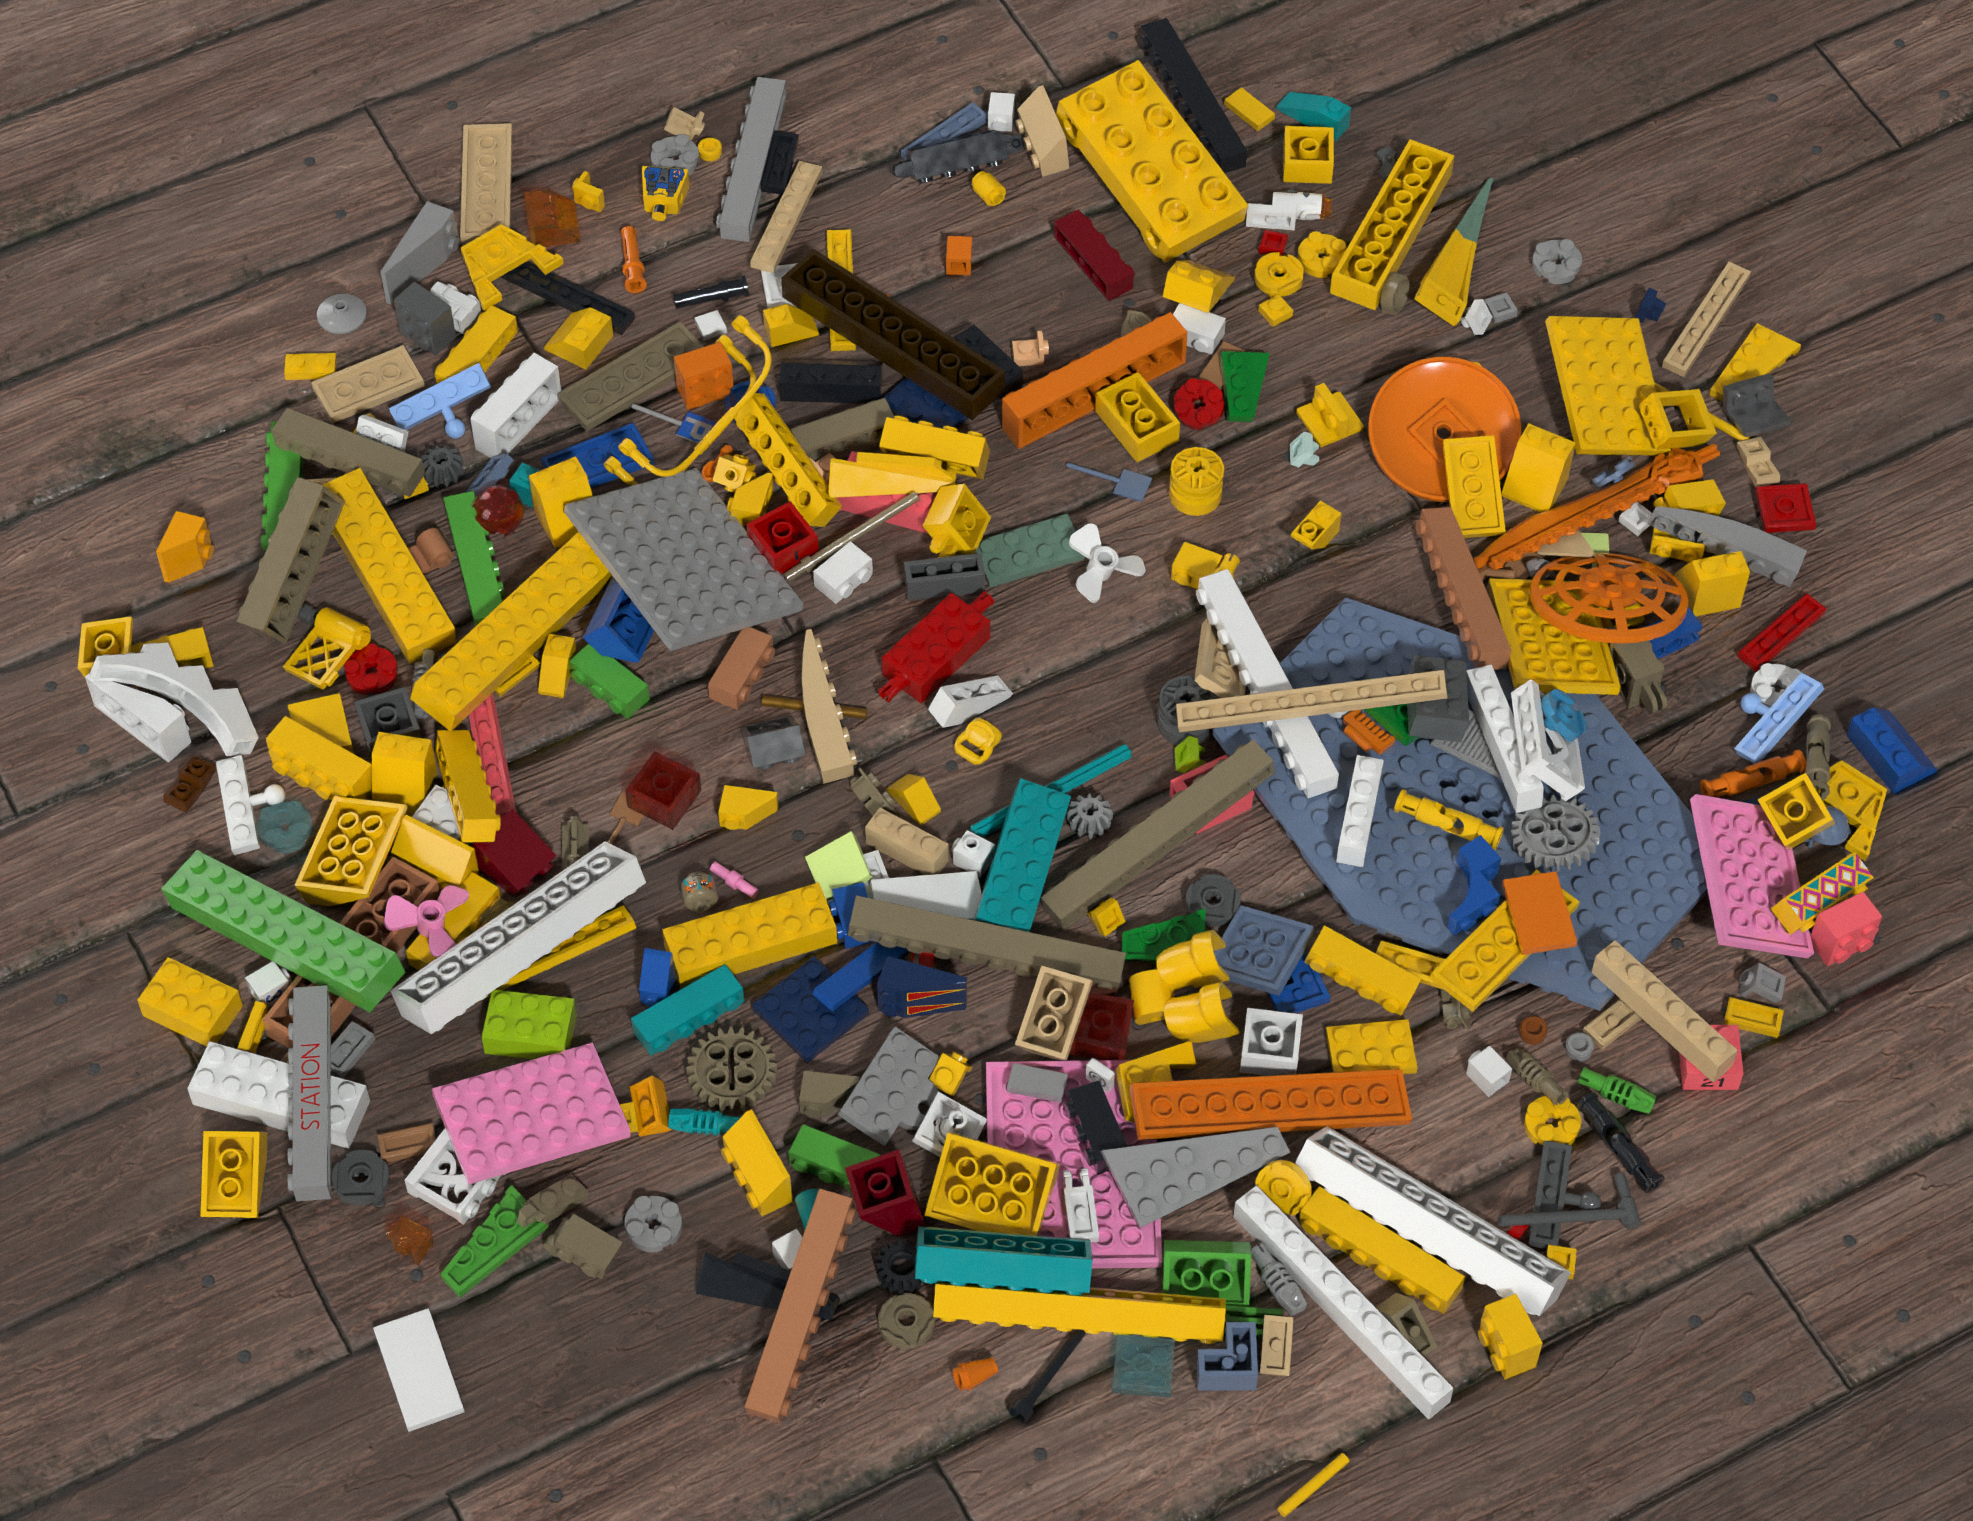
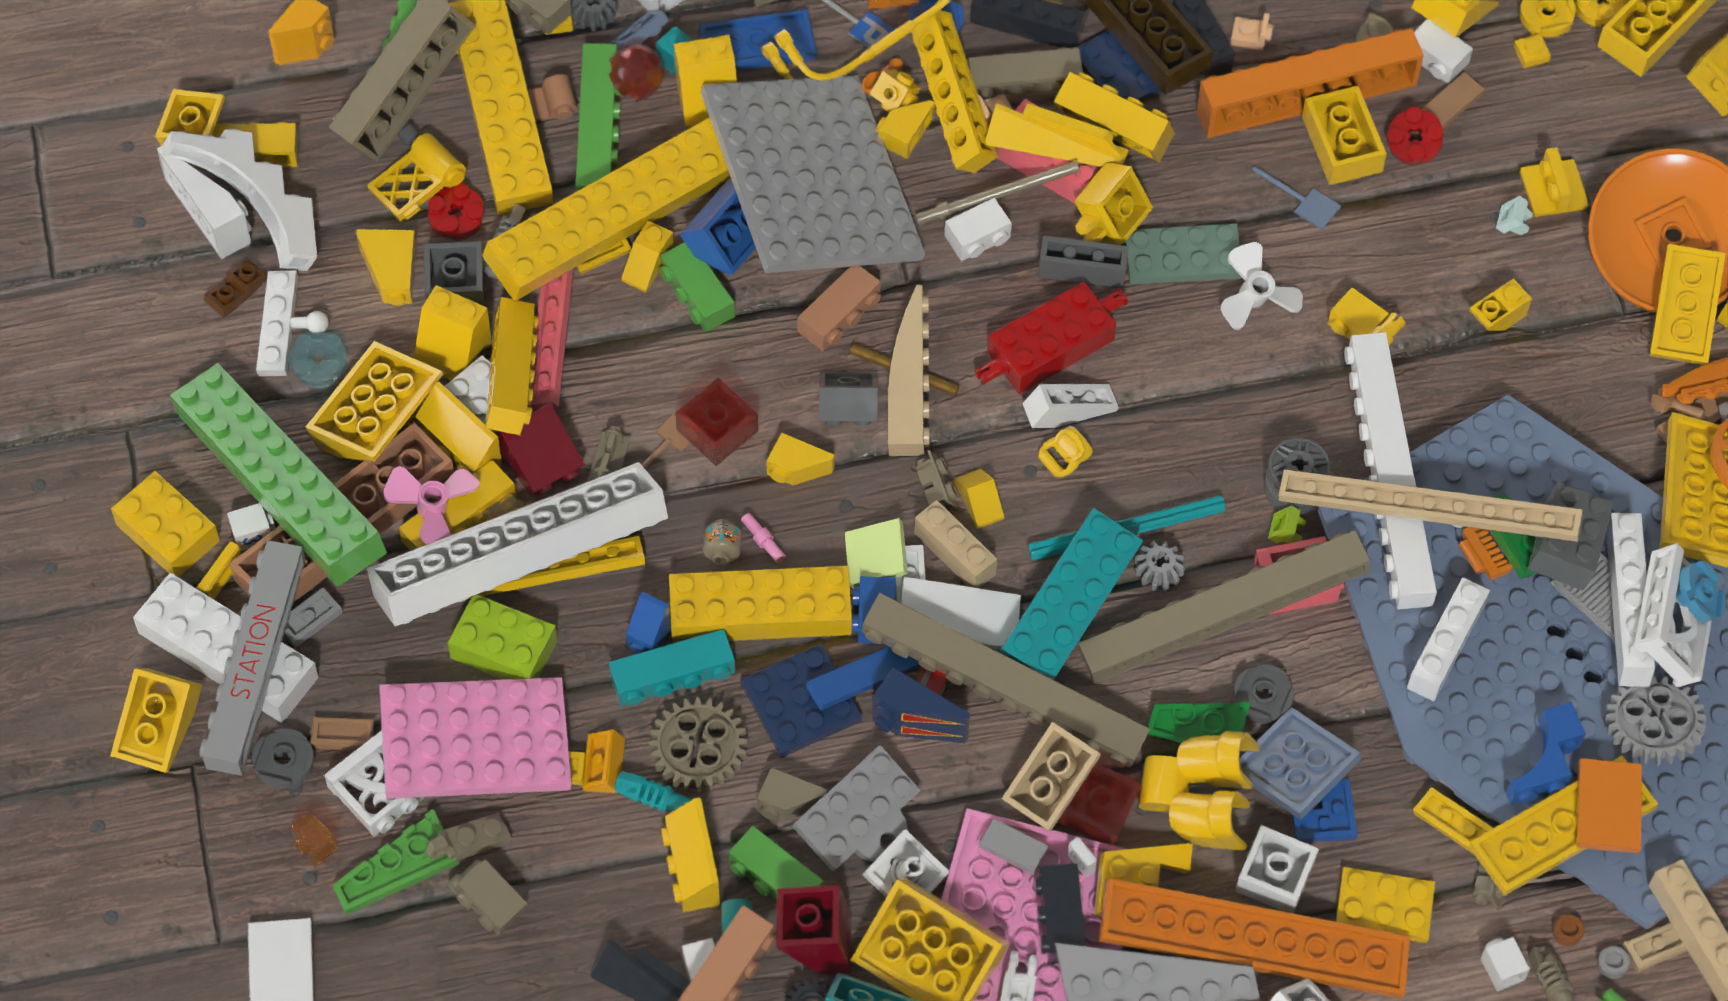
camera: 15 degrees right, 5 degrees up
(318, 762) = (369, 301): yellow brick -> none
(651, 1208) = (573, 905): light grey plate -> none
(783, 537) = (924, 175): red brick -> none
(950, 1072) = (926, 809): yellow bracket -> none
(973, 853) = (1022, 575): white brick -> none
(1107, 916) = (1144, 682): yellow tile -> none
(1196, 481) = (1386, 222): yellow wheel -> none
(1214, 667) = (1339, 437): tan plate -> none
(1242, 383) = (1470, 123): green wing -> none
(1362, 971) = (1400, 816): yellow brick -> none
(1394, 293) = (1667, 64): dark tan hat -> none
(1438, 815) = (1534, 667): yellow piece -> none
(1463, 588) = (1639, 417): nougat brick -> none

